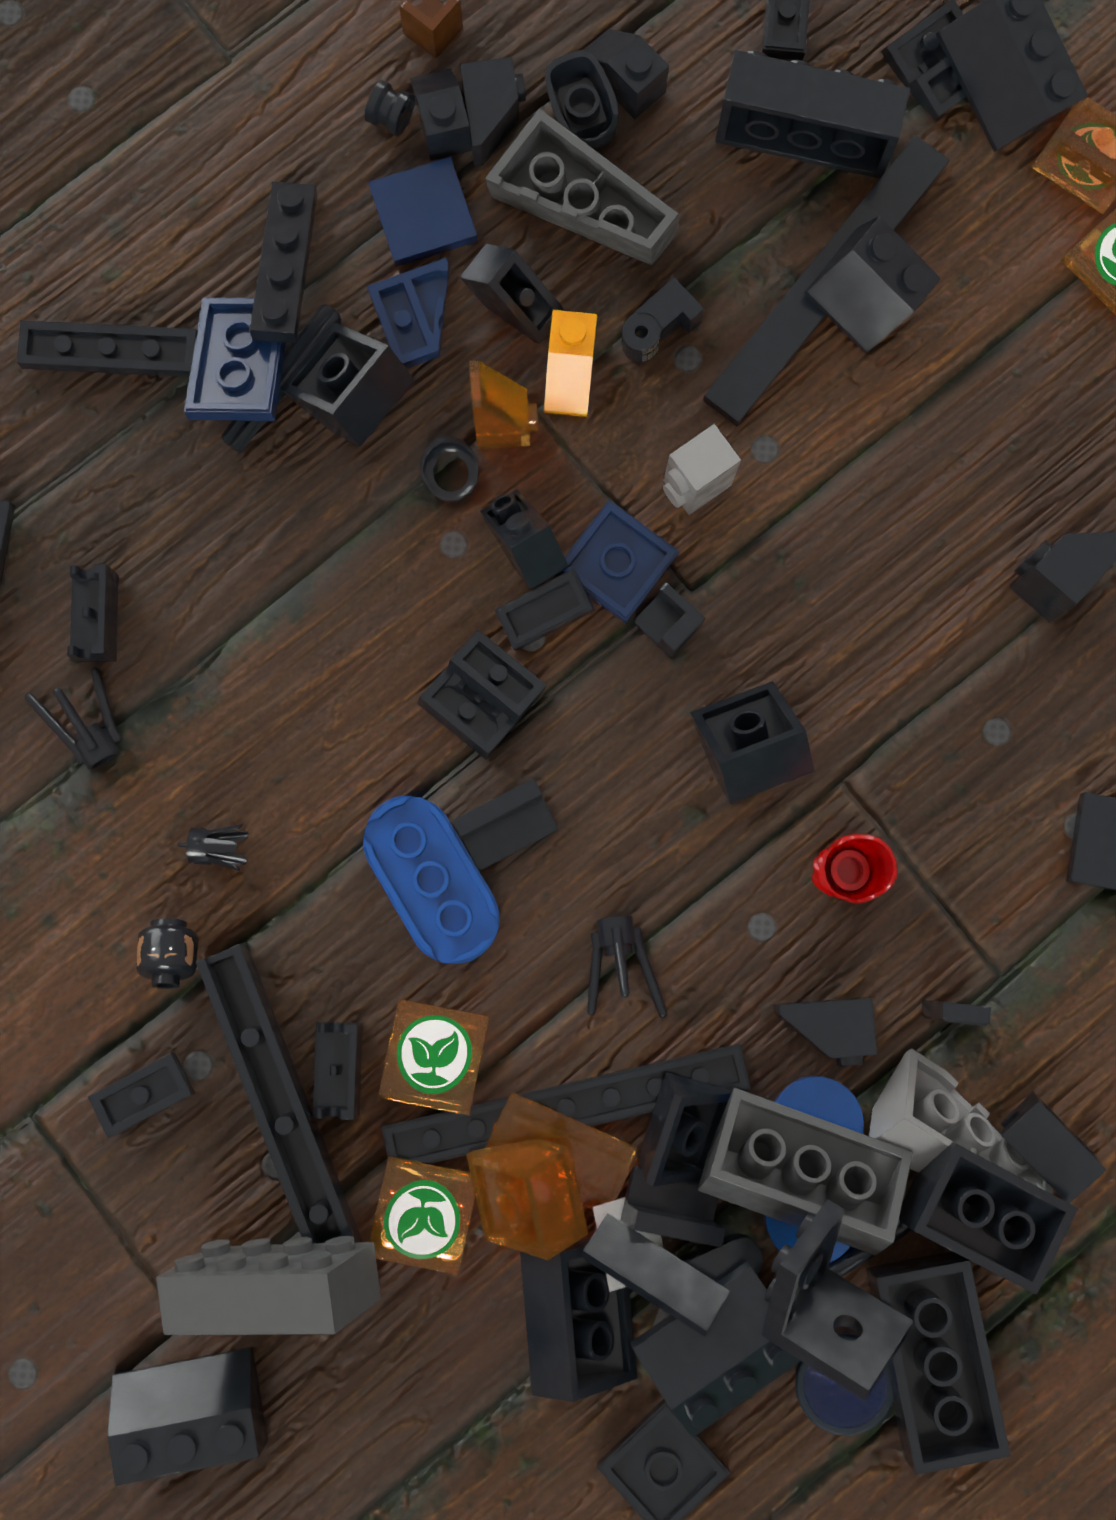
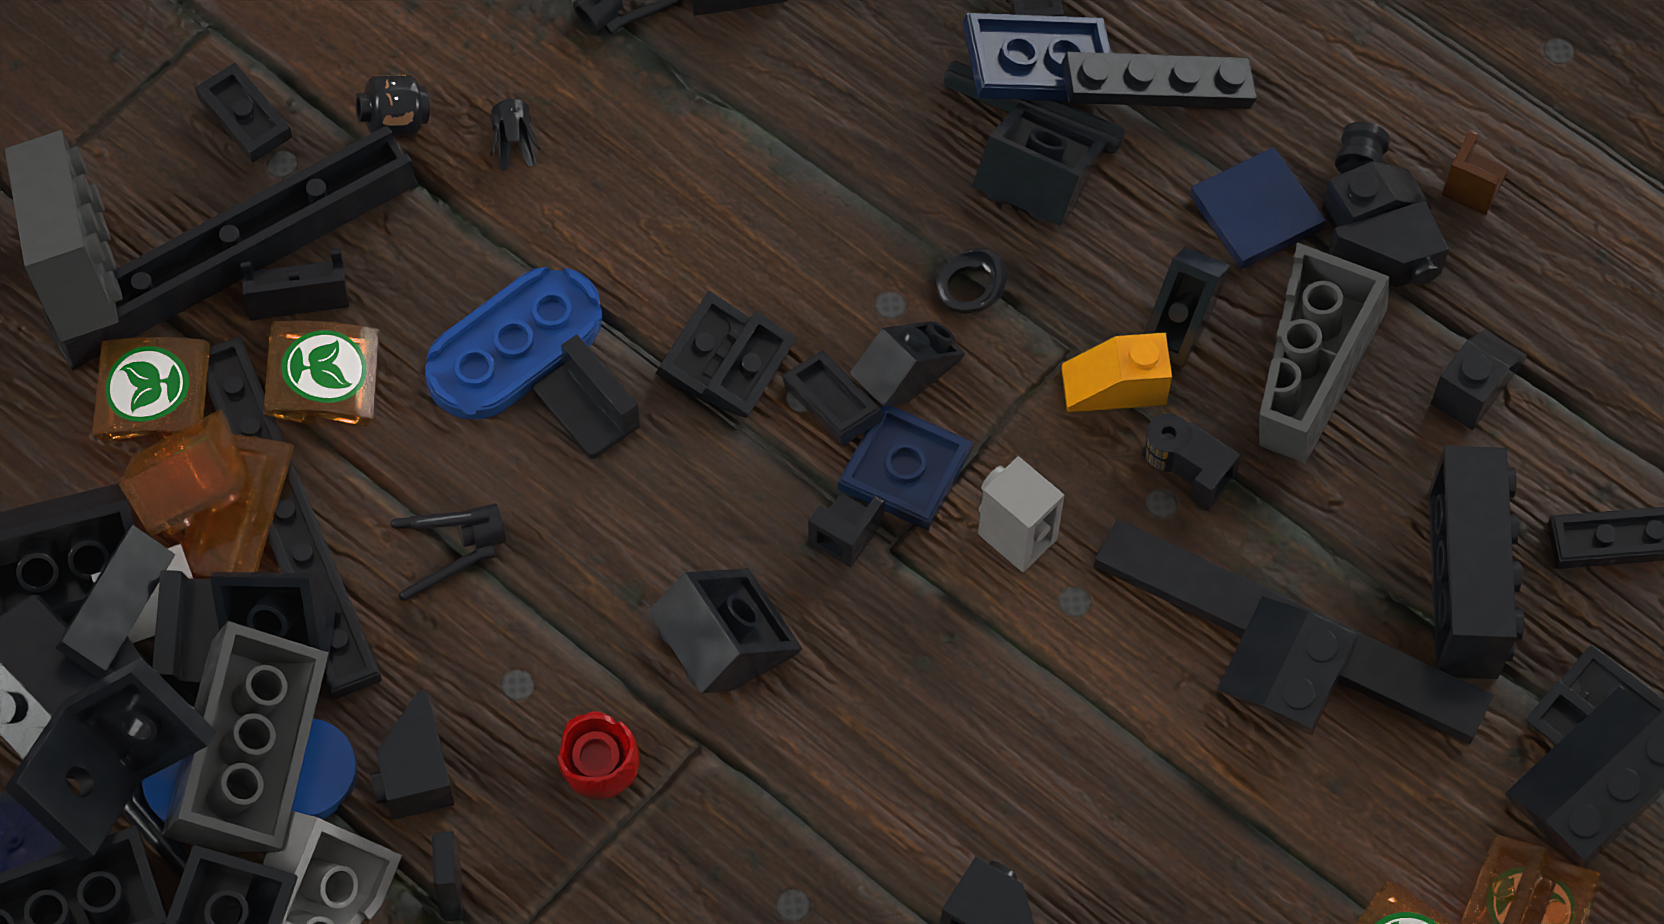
camera: 80 degrees right, 20 degrees down
(413, 311) = (1137, 214): dark blue wing -> none
(500, 409) = (1038, 294): clear orange slope -> none
(582, 98) = (1420, 331): black piece -> none

